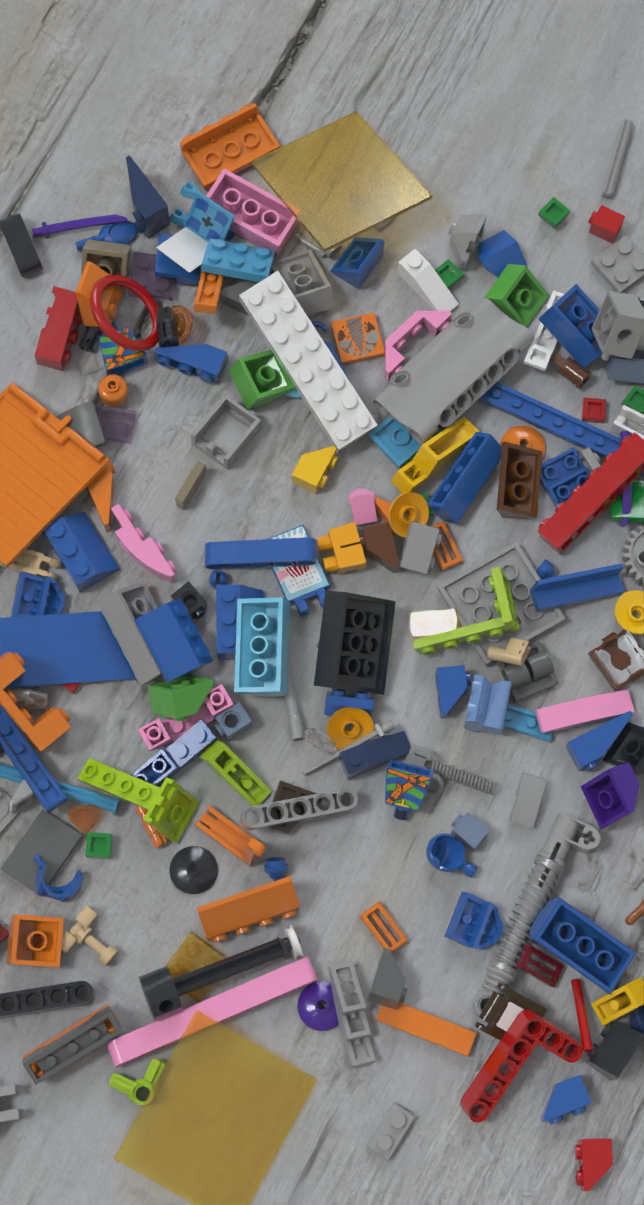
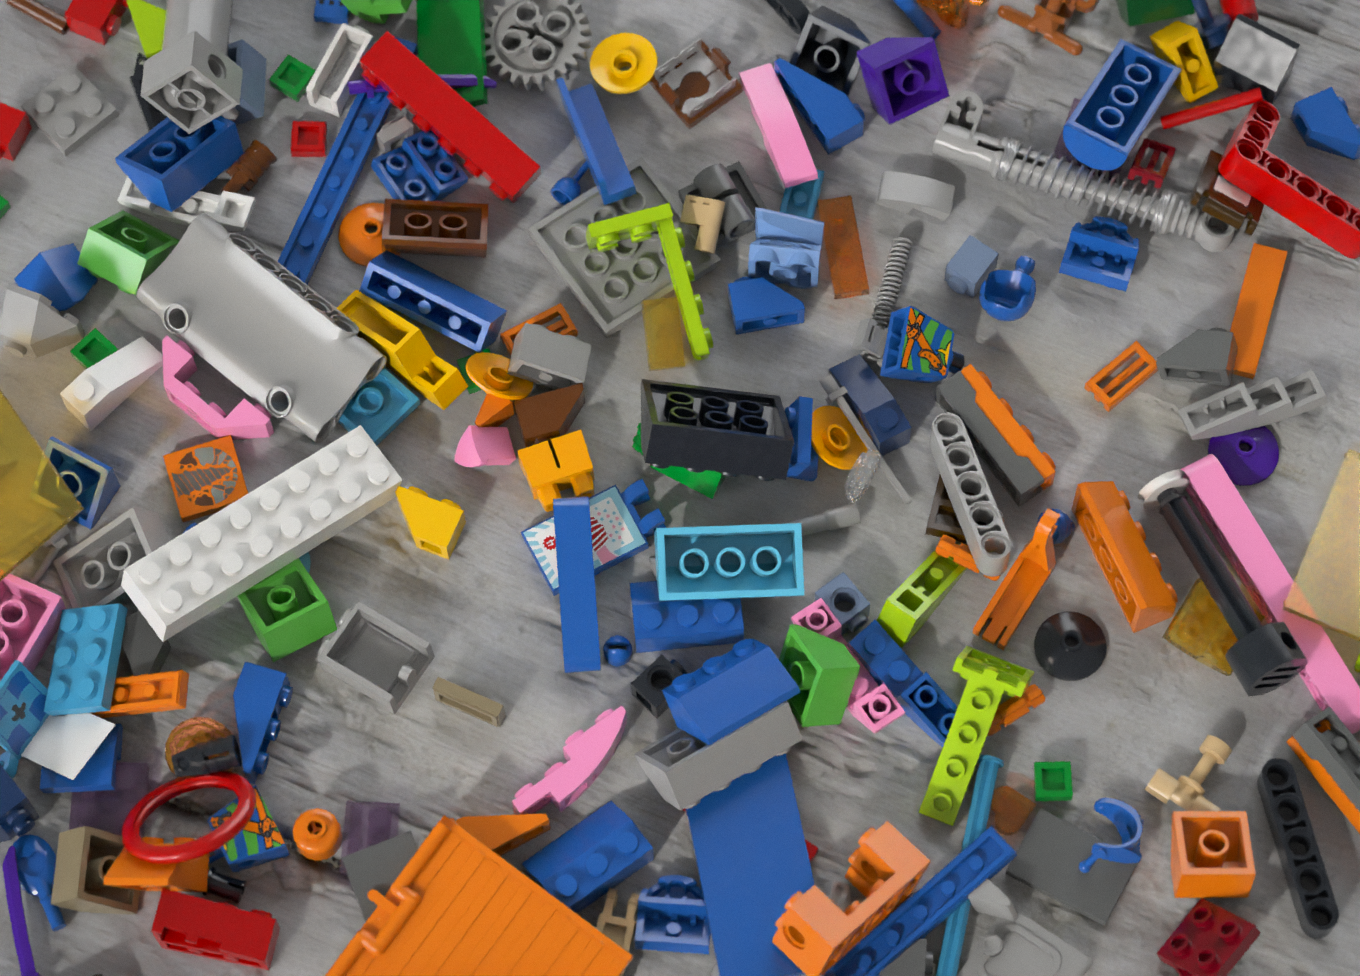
camera: 90 degrees left, 5 degrees down
(266, 794) = (961, 554): none -> orange axle
(344, 834) = (996, 435): none -> dark grey piece
(493, 748) = (843, 247): none -> clear orange plate

